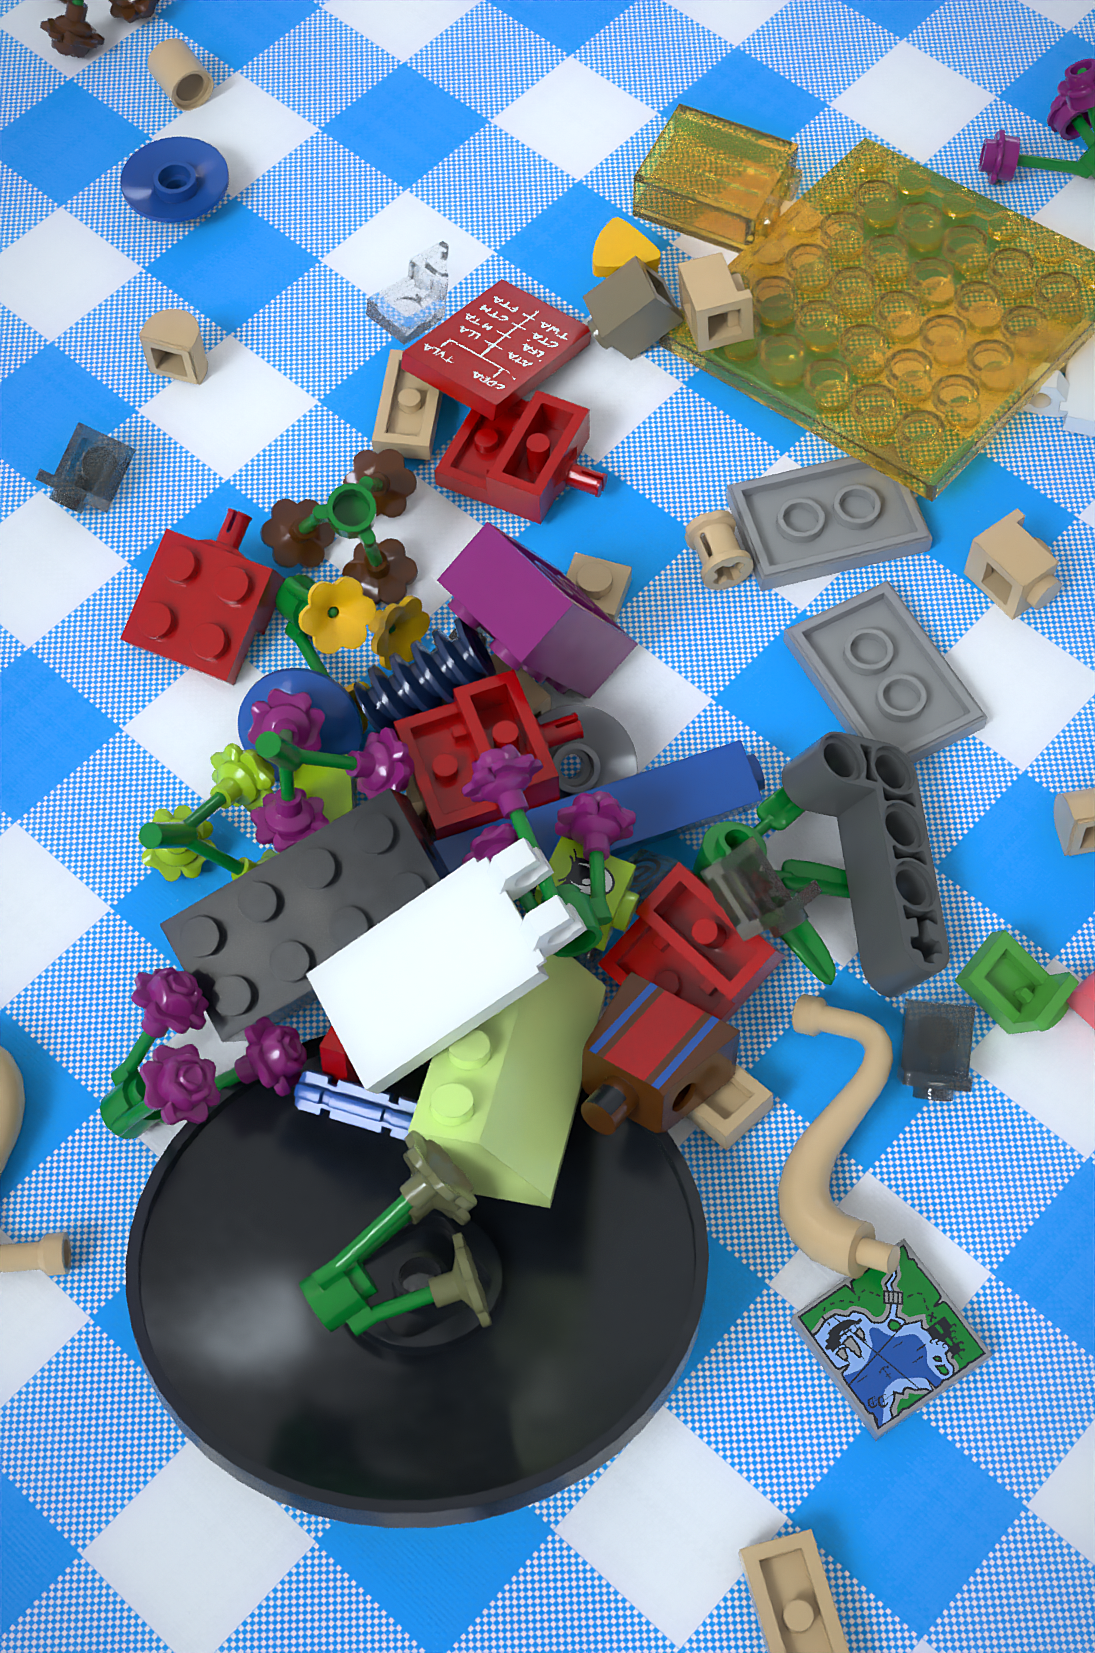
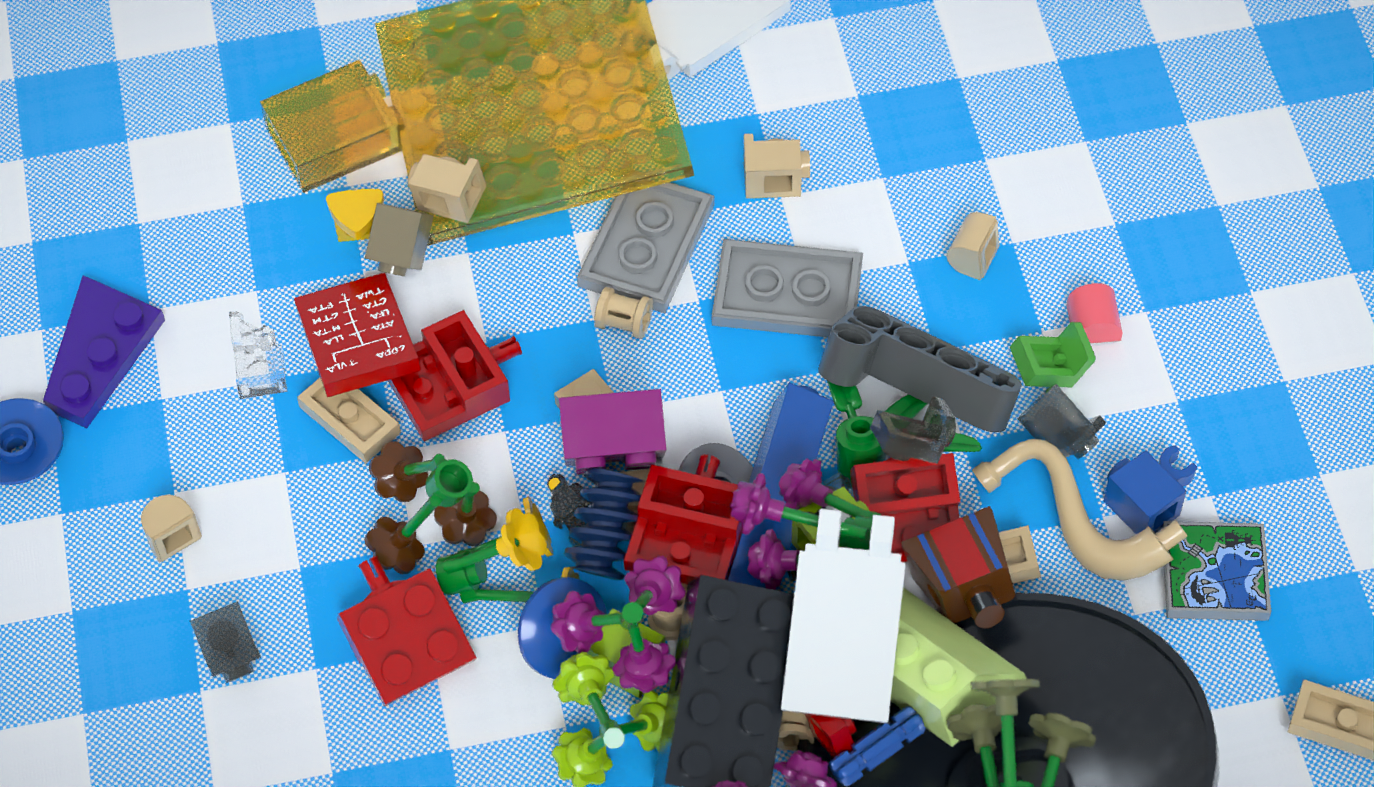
camera: 55 degrees left, 5 degrees down
(326, 179) = (98, 349): none -> dark purple wing
(924, 1196) = (1148, 490): none -> blue brick

